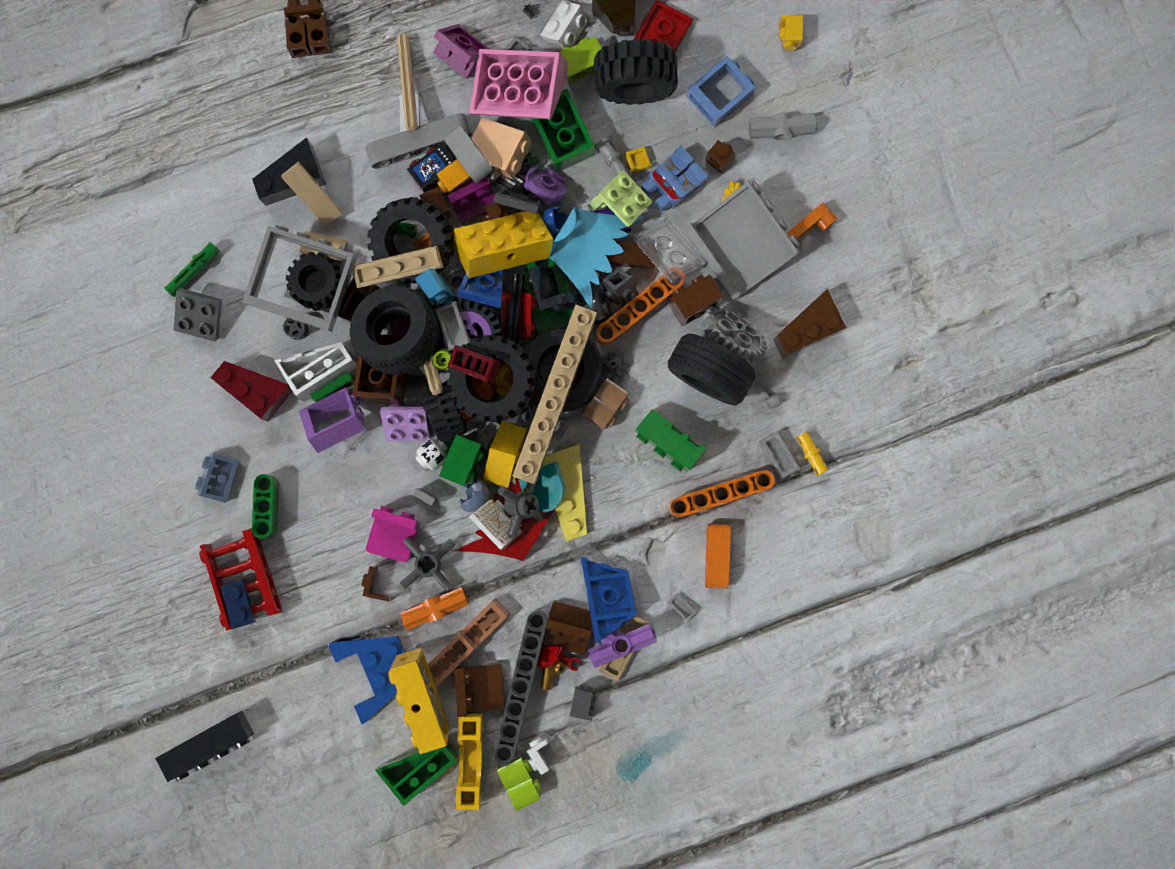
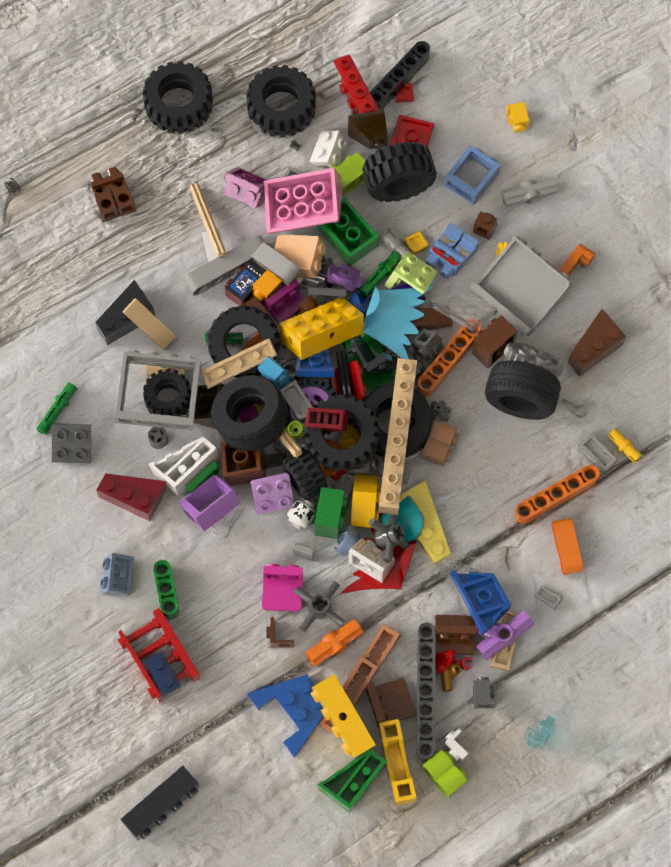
camera: 15 degrees left, 15 degrees down
(593, 184) = (385, 268): none -> green pin
(668, 441) = (501, 460): green wedge -> none

